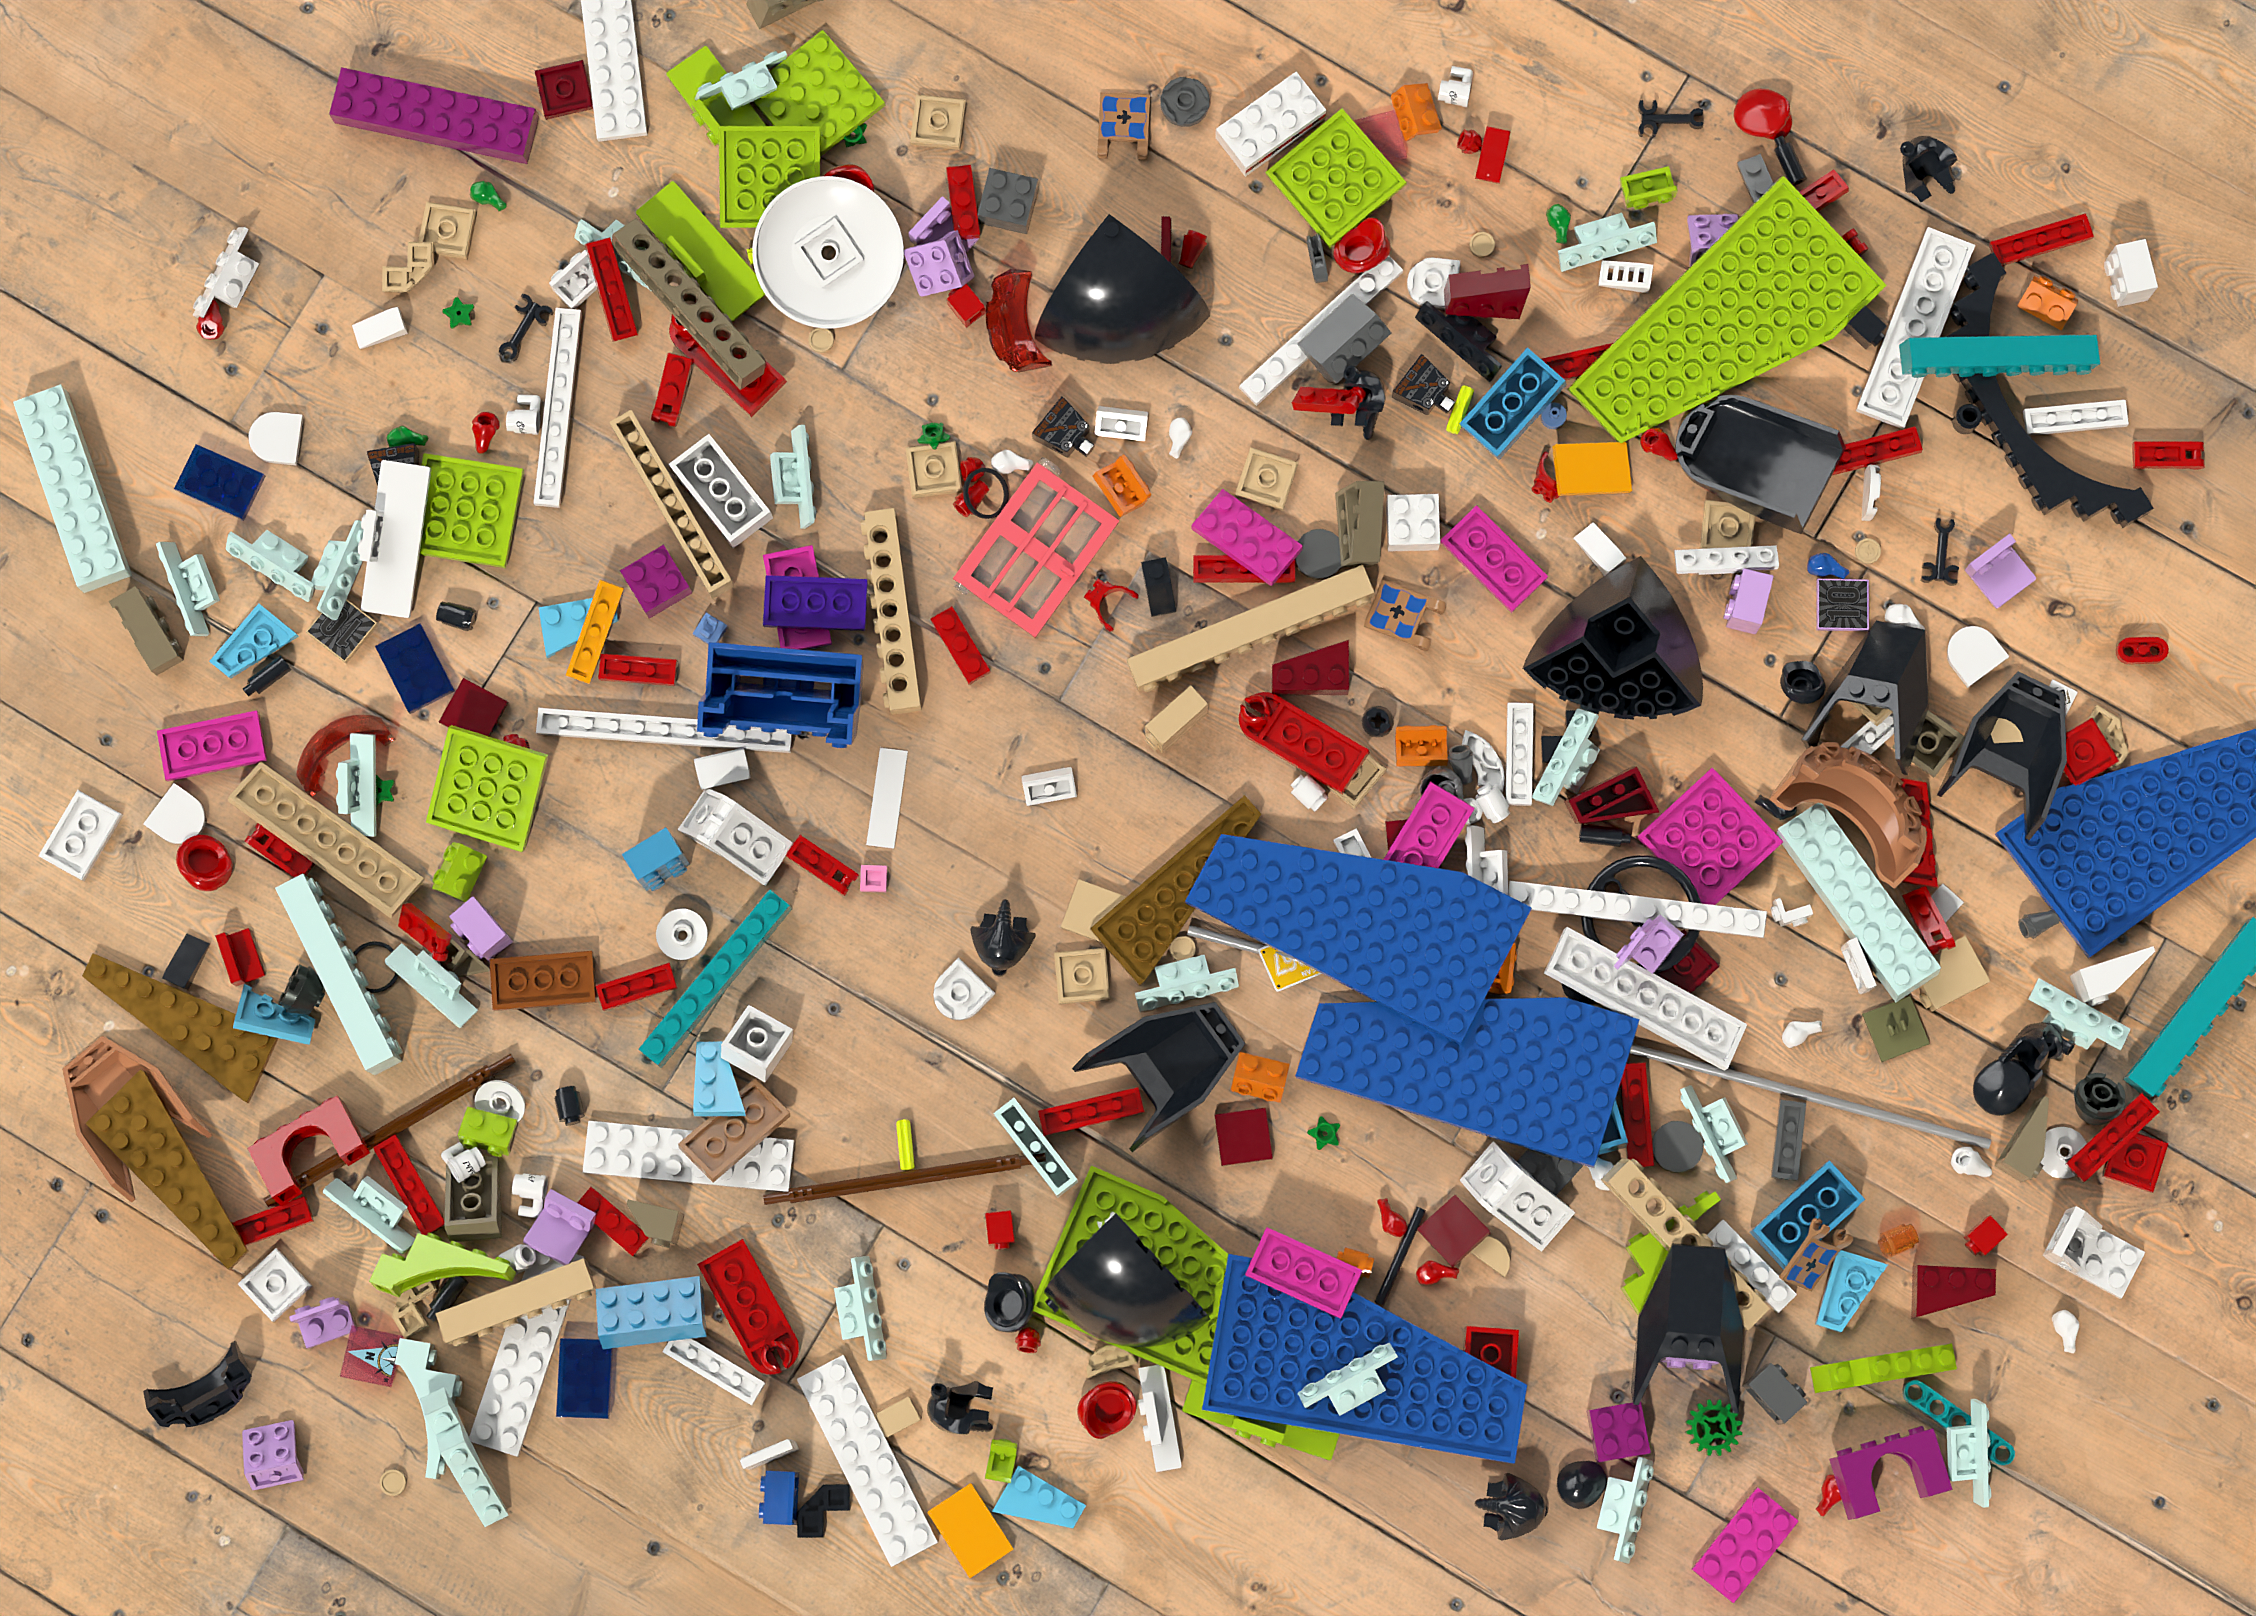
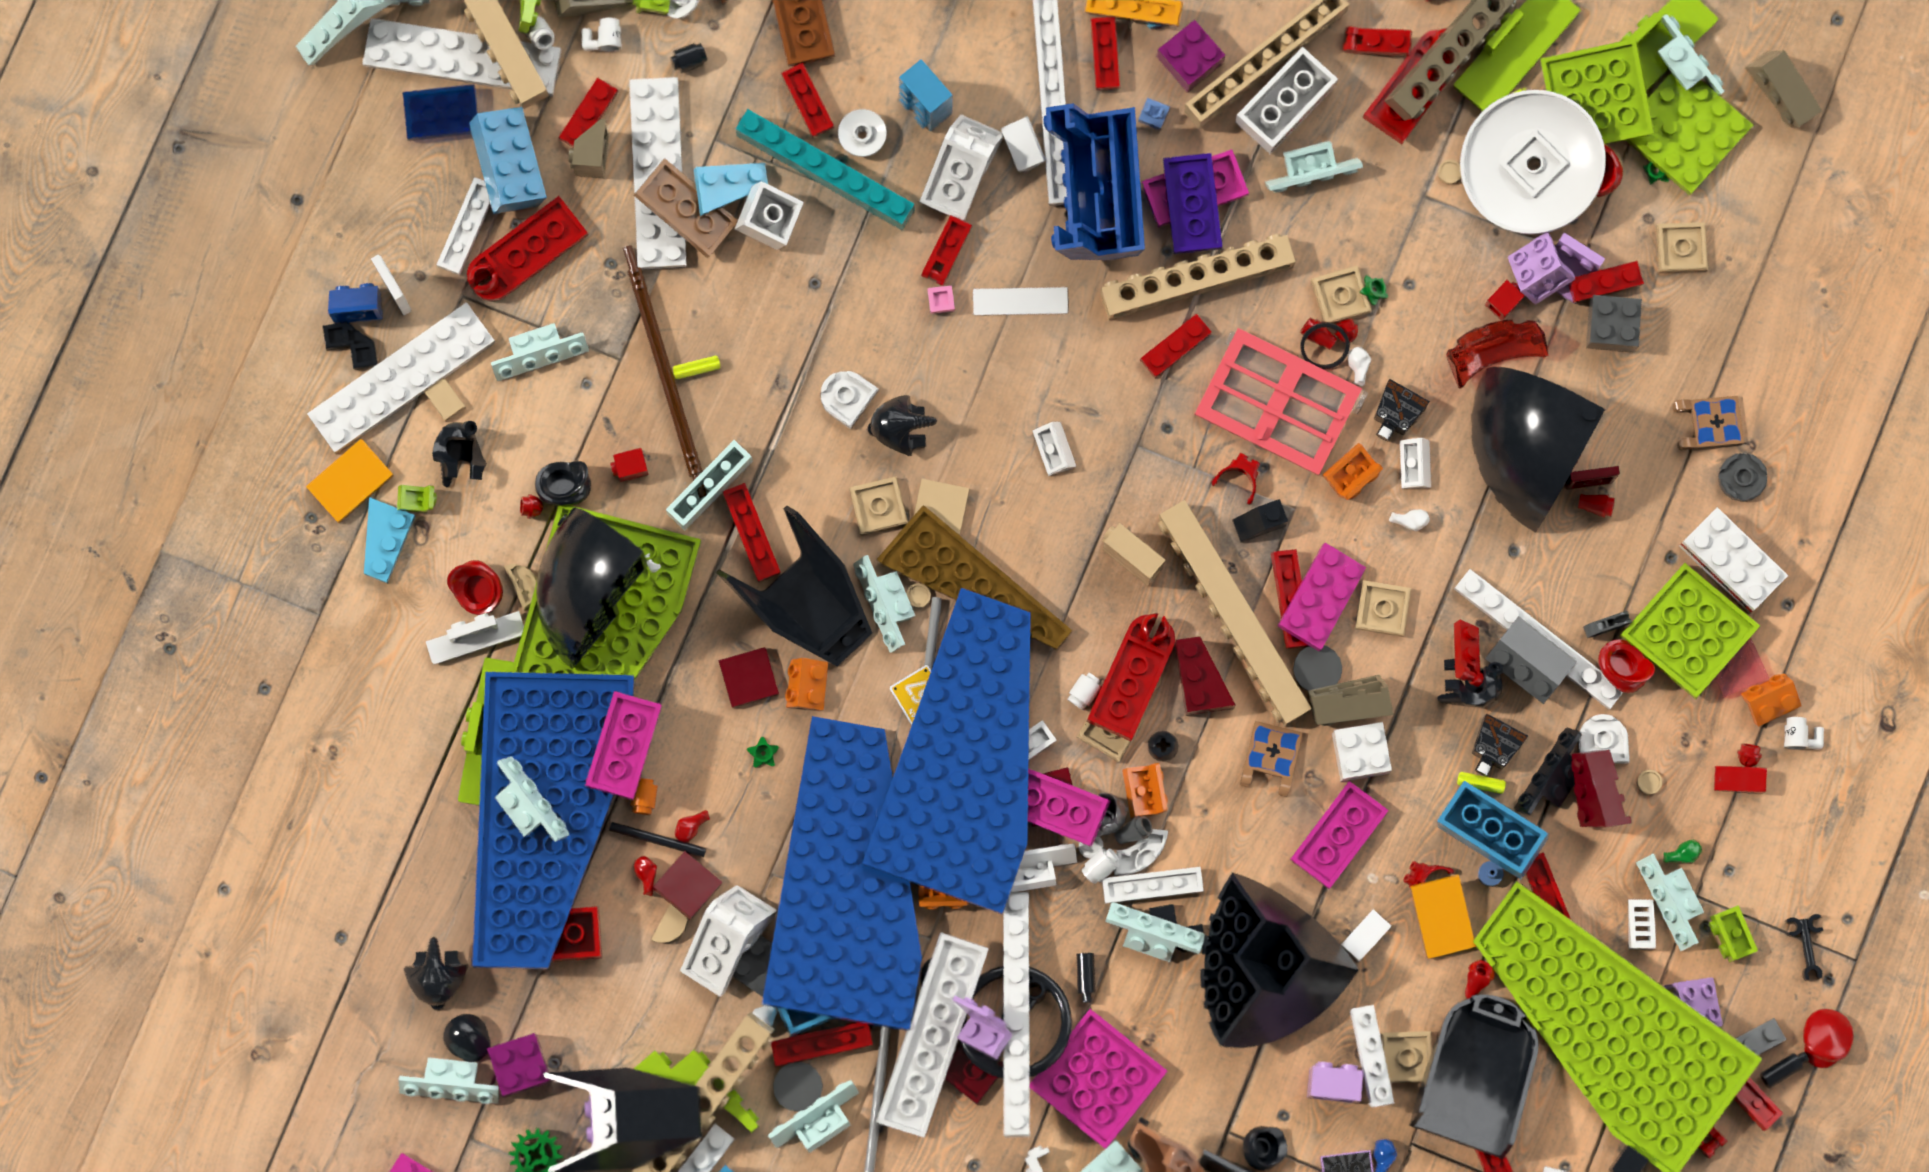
camera: 75 degrees right, 0 degrees up
(560, 1228) = (573, 67): lavender bracket -> none
(1613, 798) = (1121, 978): dark red wedge -> none

